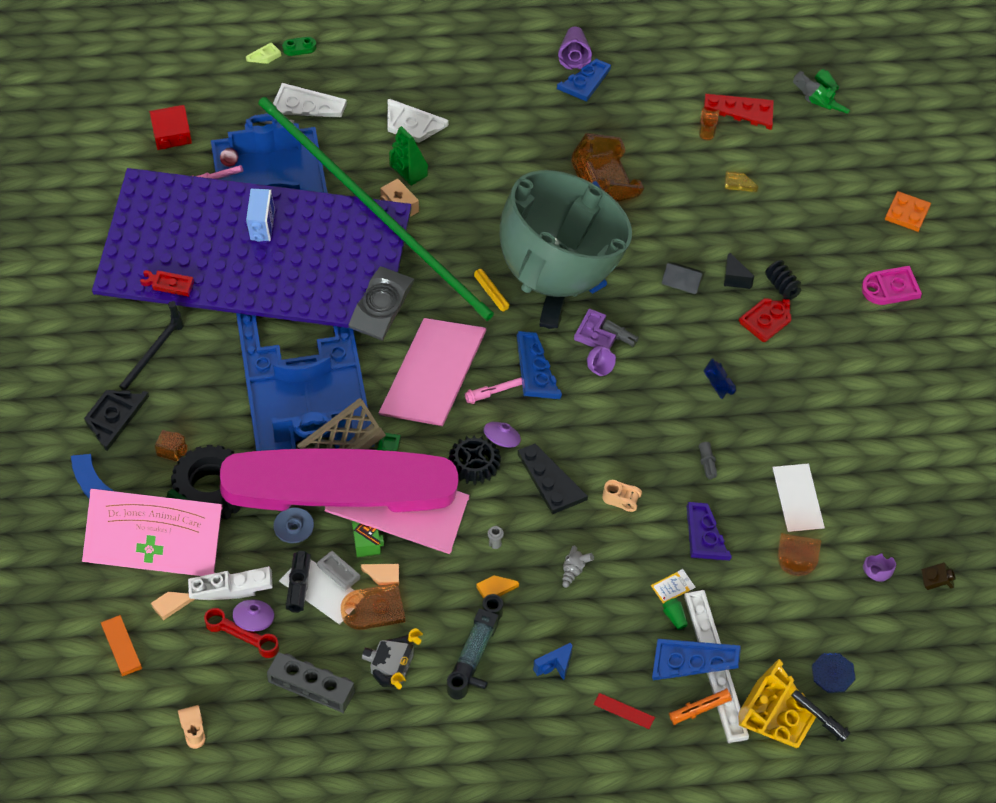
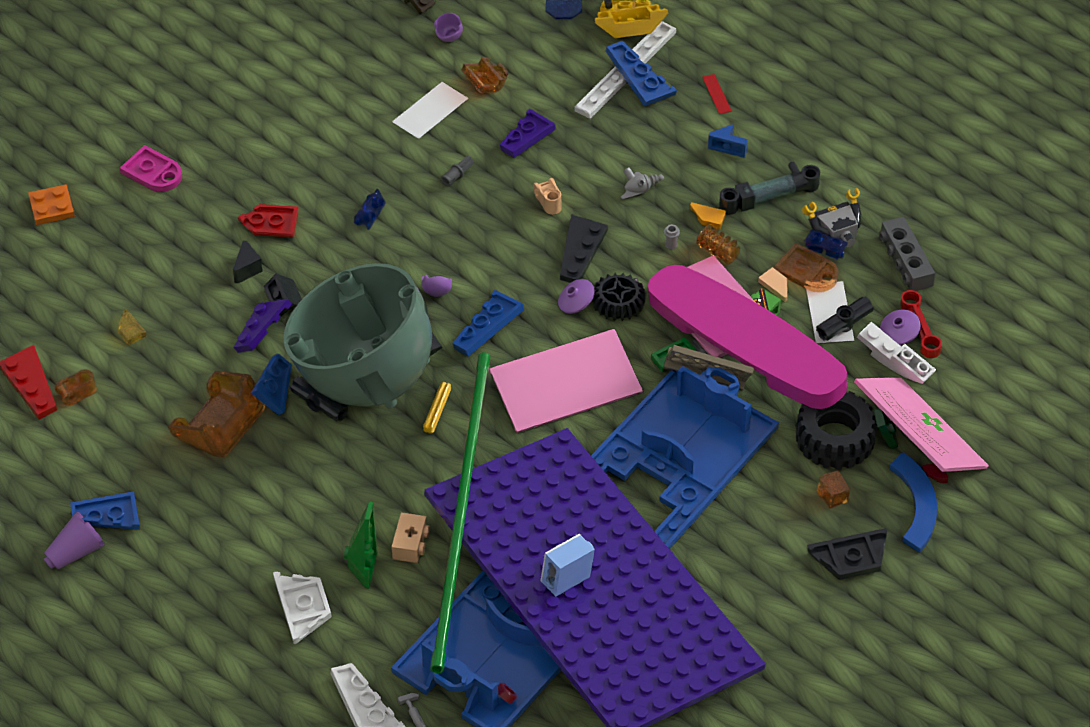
camera: 130 degrees left, 5 degrees down
(121, 645) = (1016, 384): orange tile -> none
(168, 282) = (700, 597): red plate -> none
(170, 603) = (951, 383): light nougat tile -> none
(175, 324) = (720, 586): black bar -> none
(192, 724) = (1018, 291): light nougat piece -> none
(224, 173) = (546, 699): bright pink pin -> none
(338, 570) = (806, 306): light grey plate -> none
(378, 631) = (818, 241): none -> clear blue hinge
(380, 303) = (548, 438): dark grey slope -> none
(456, 560) = (718, 244): none -> clear orange piece
(485, 392) = (546, 338): bright pink pin -> none
(667, 243) = (261, 318): none -> dark purple wing
(673, 586) = (588, 129): white sticker -> none
(674, 611) = (612, 108): green cone -> none
(700, 706) = (677, 55): orange pin -> none
(783, 280) = (222, 228): black piece -> none

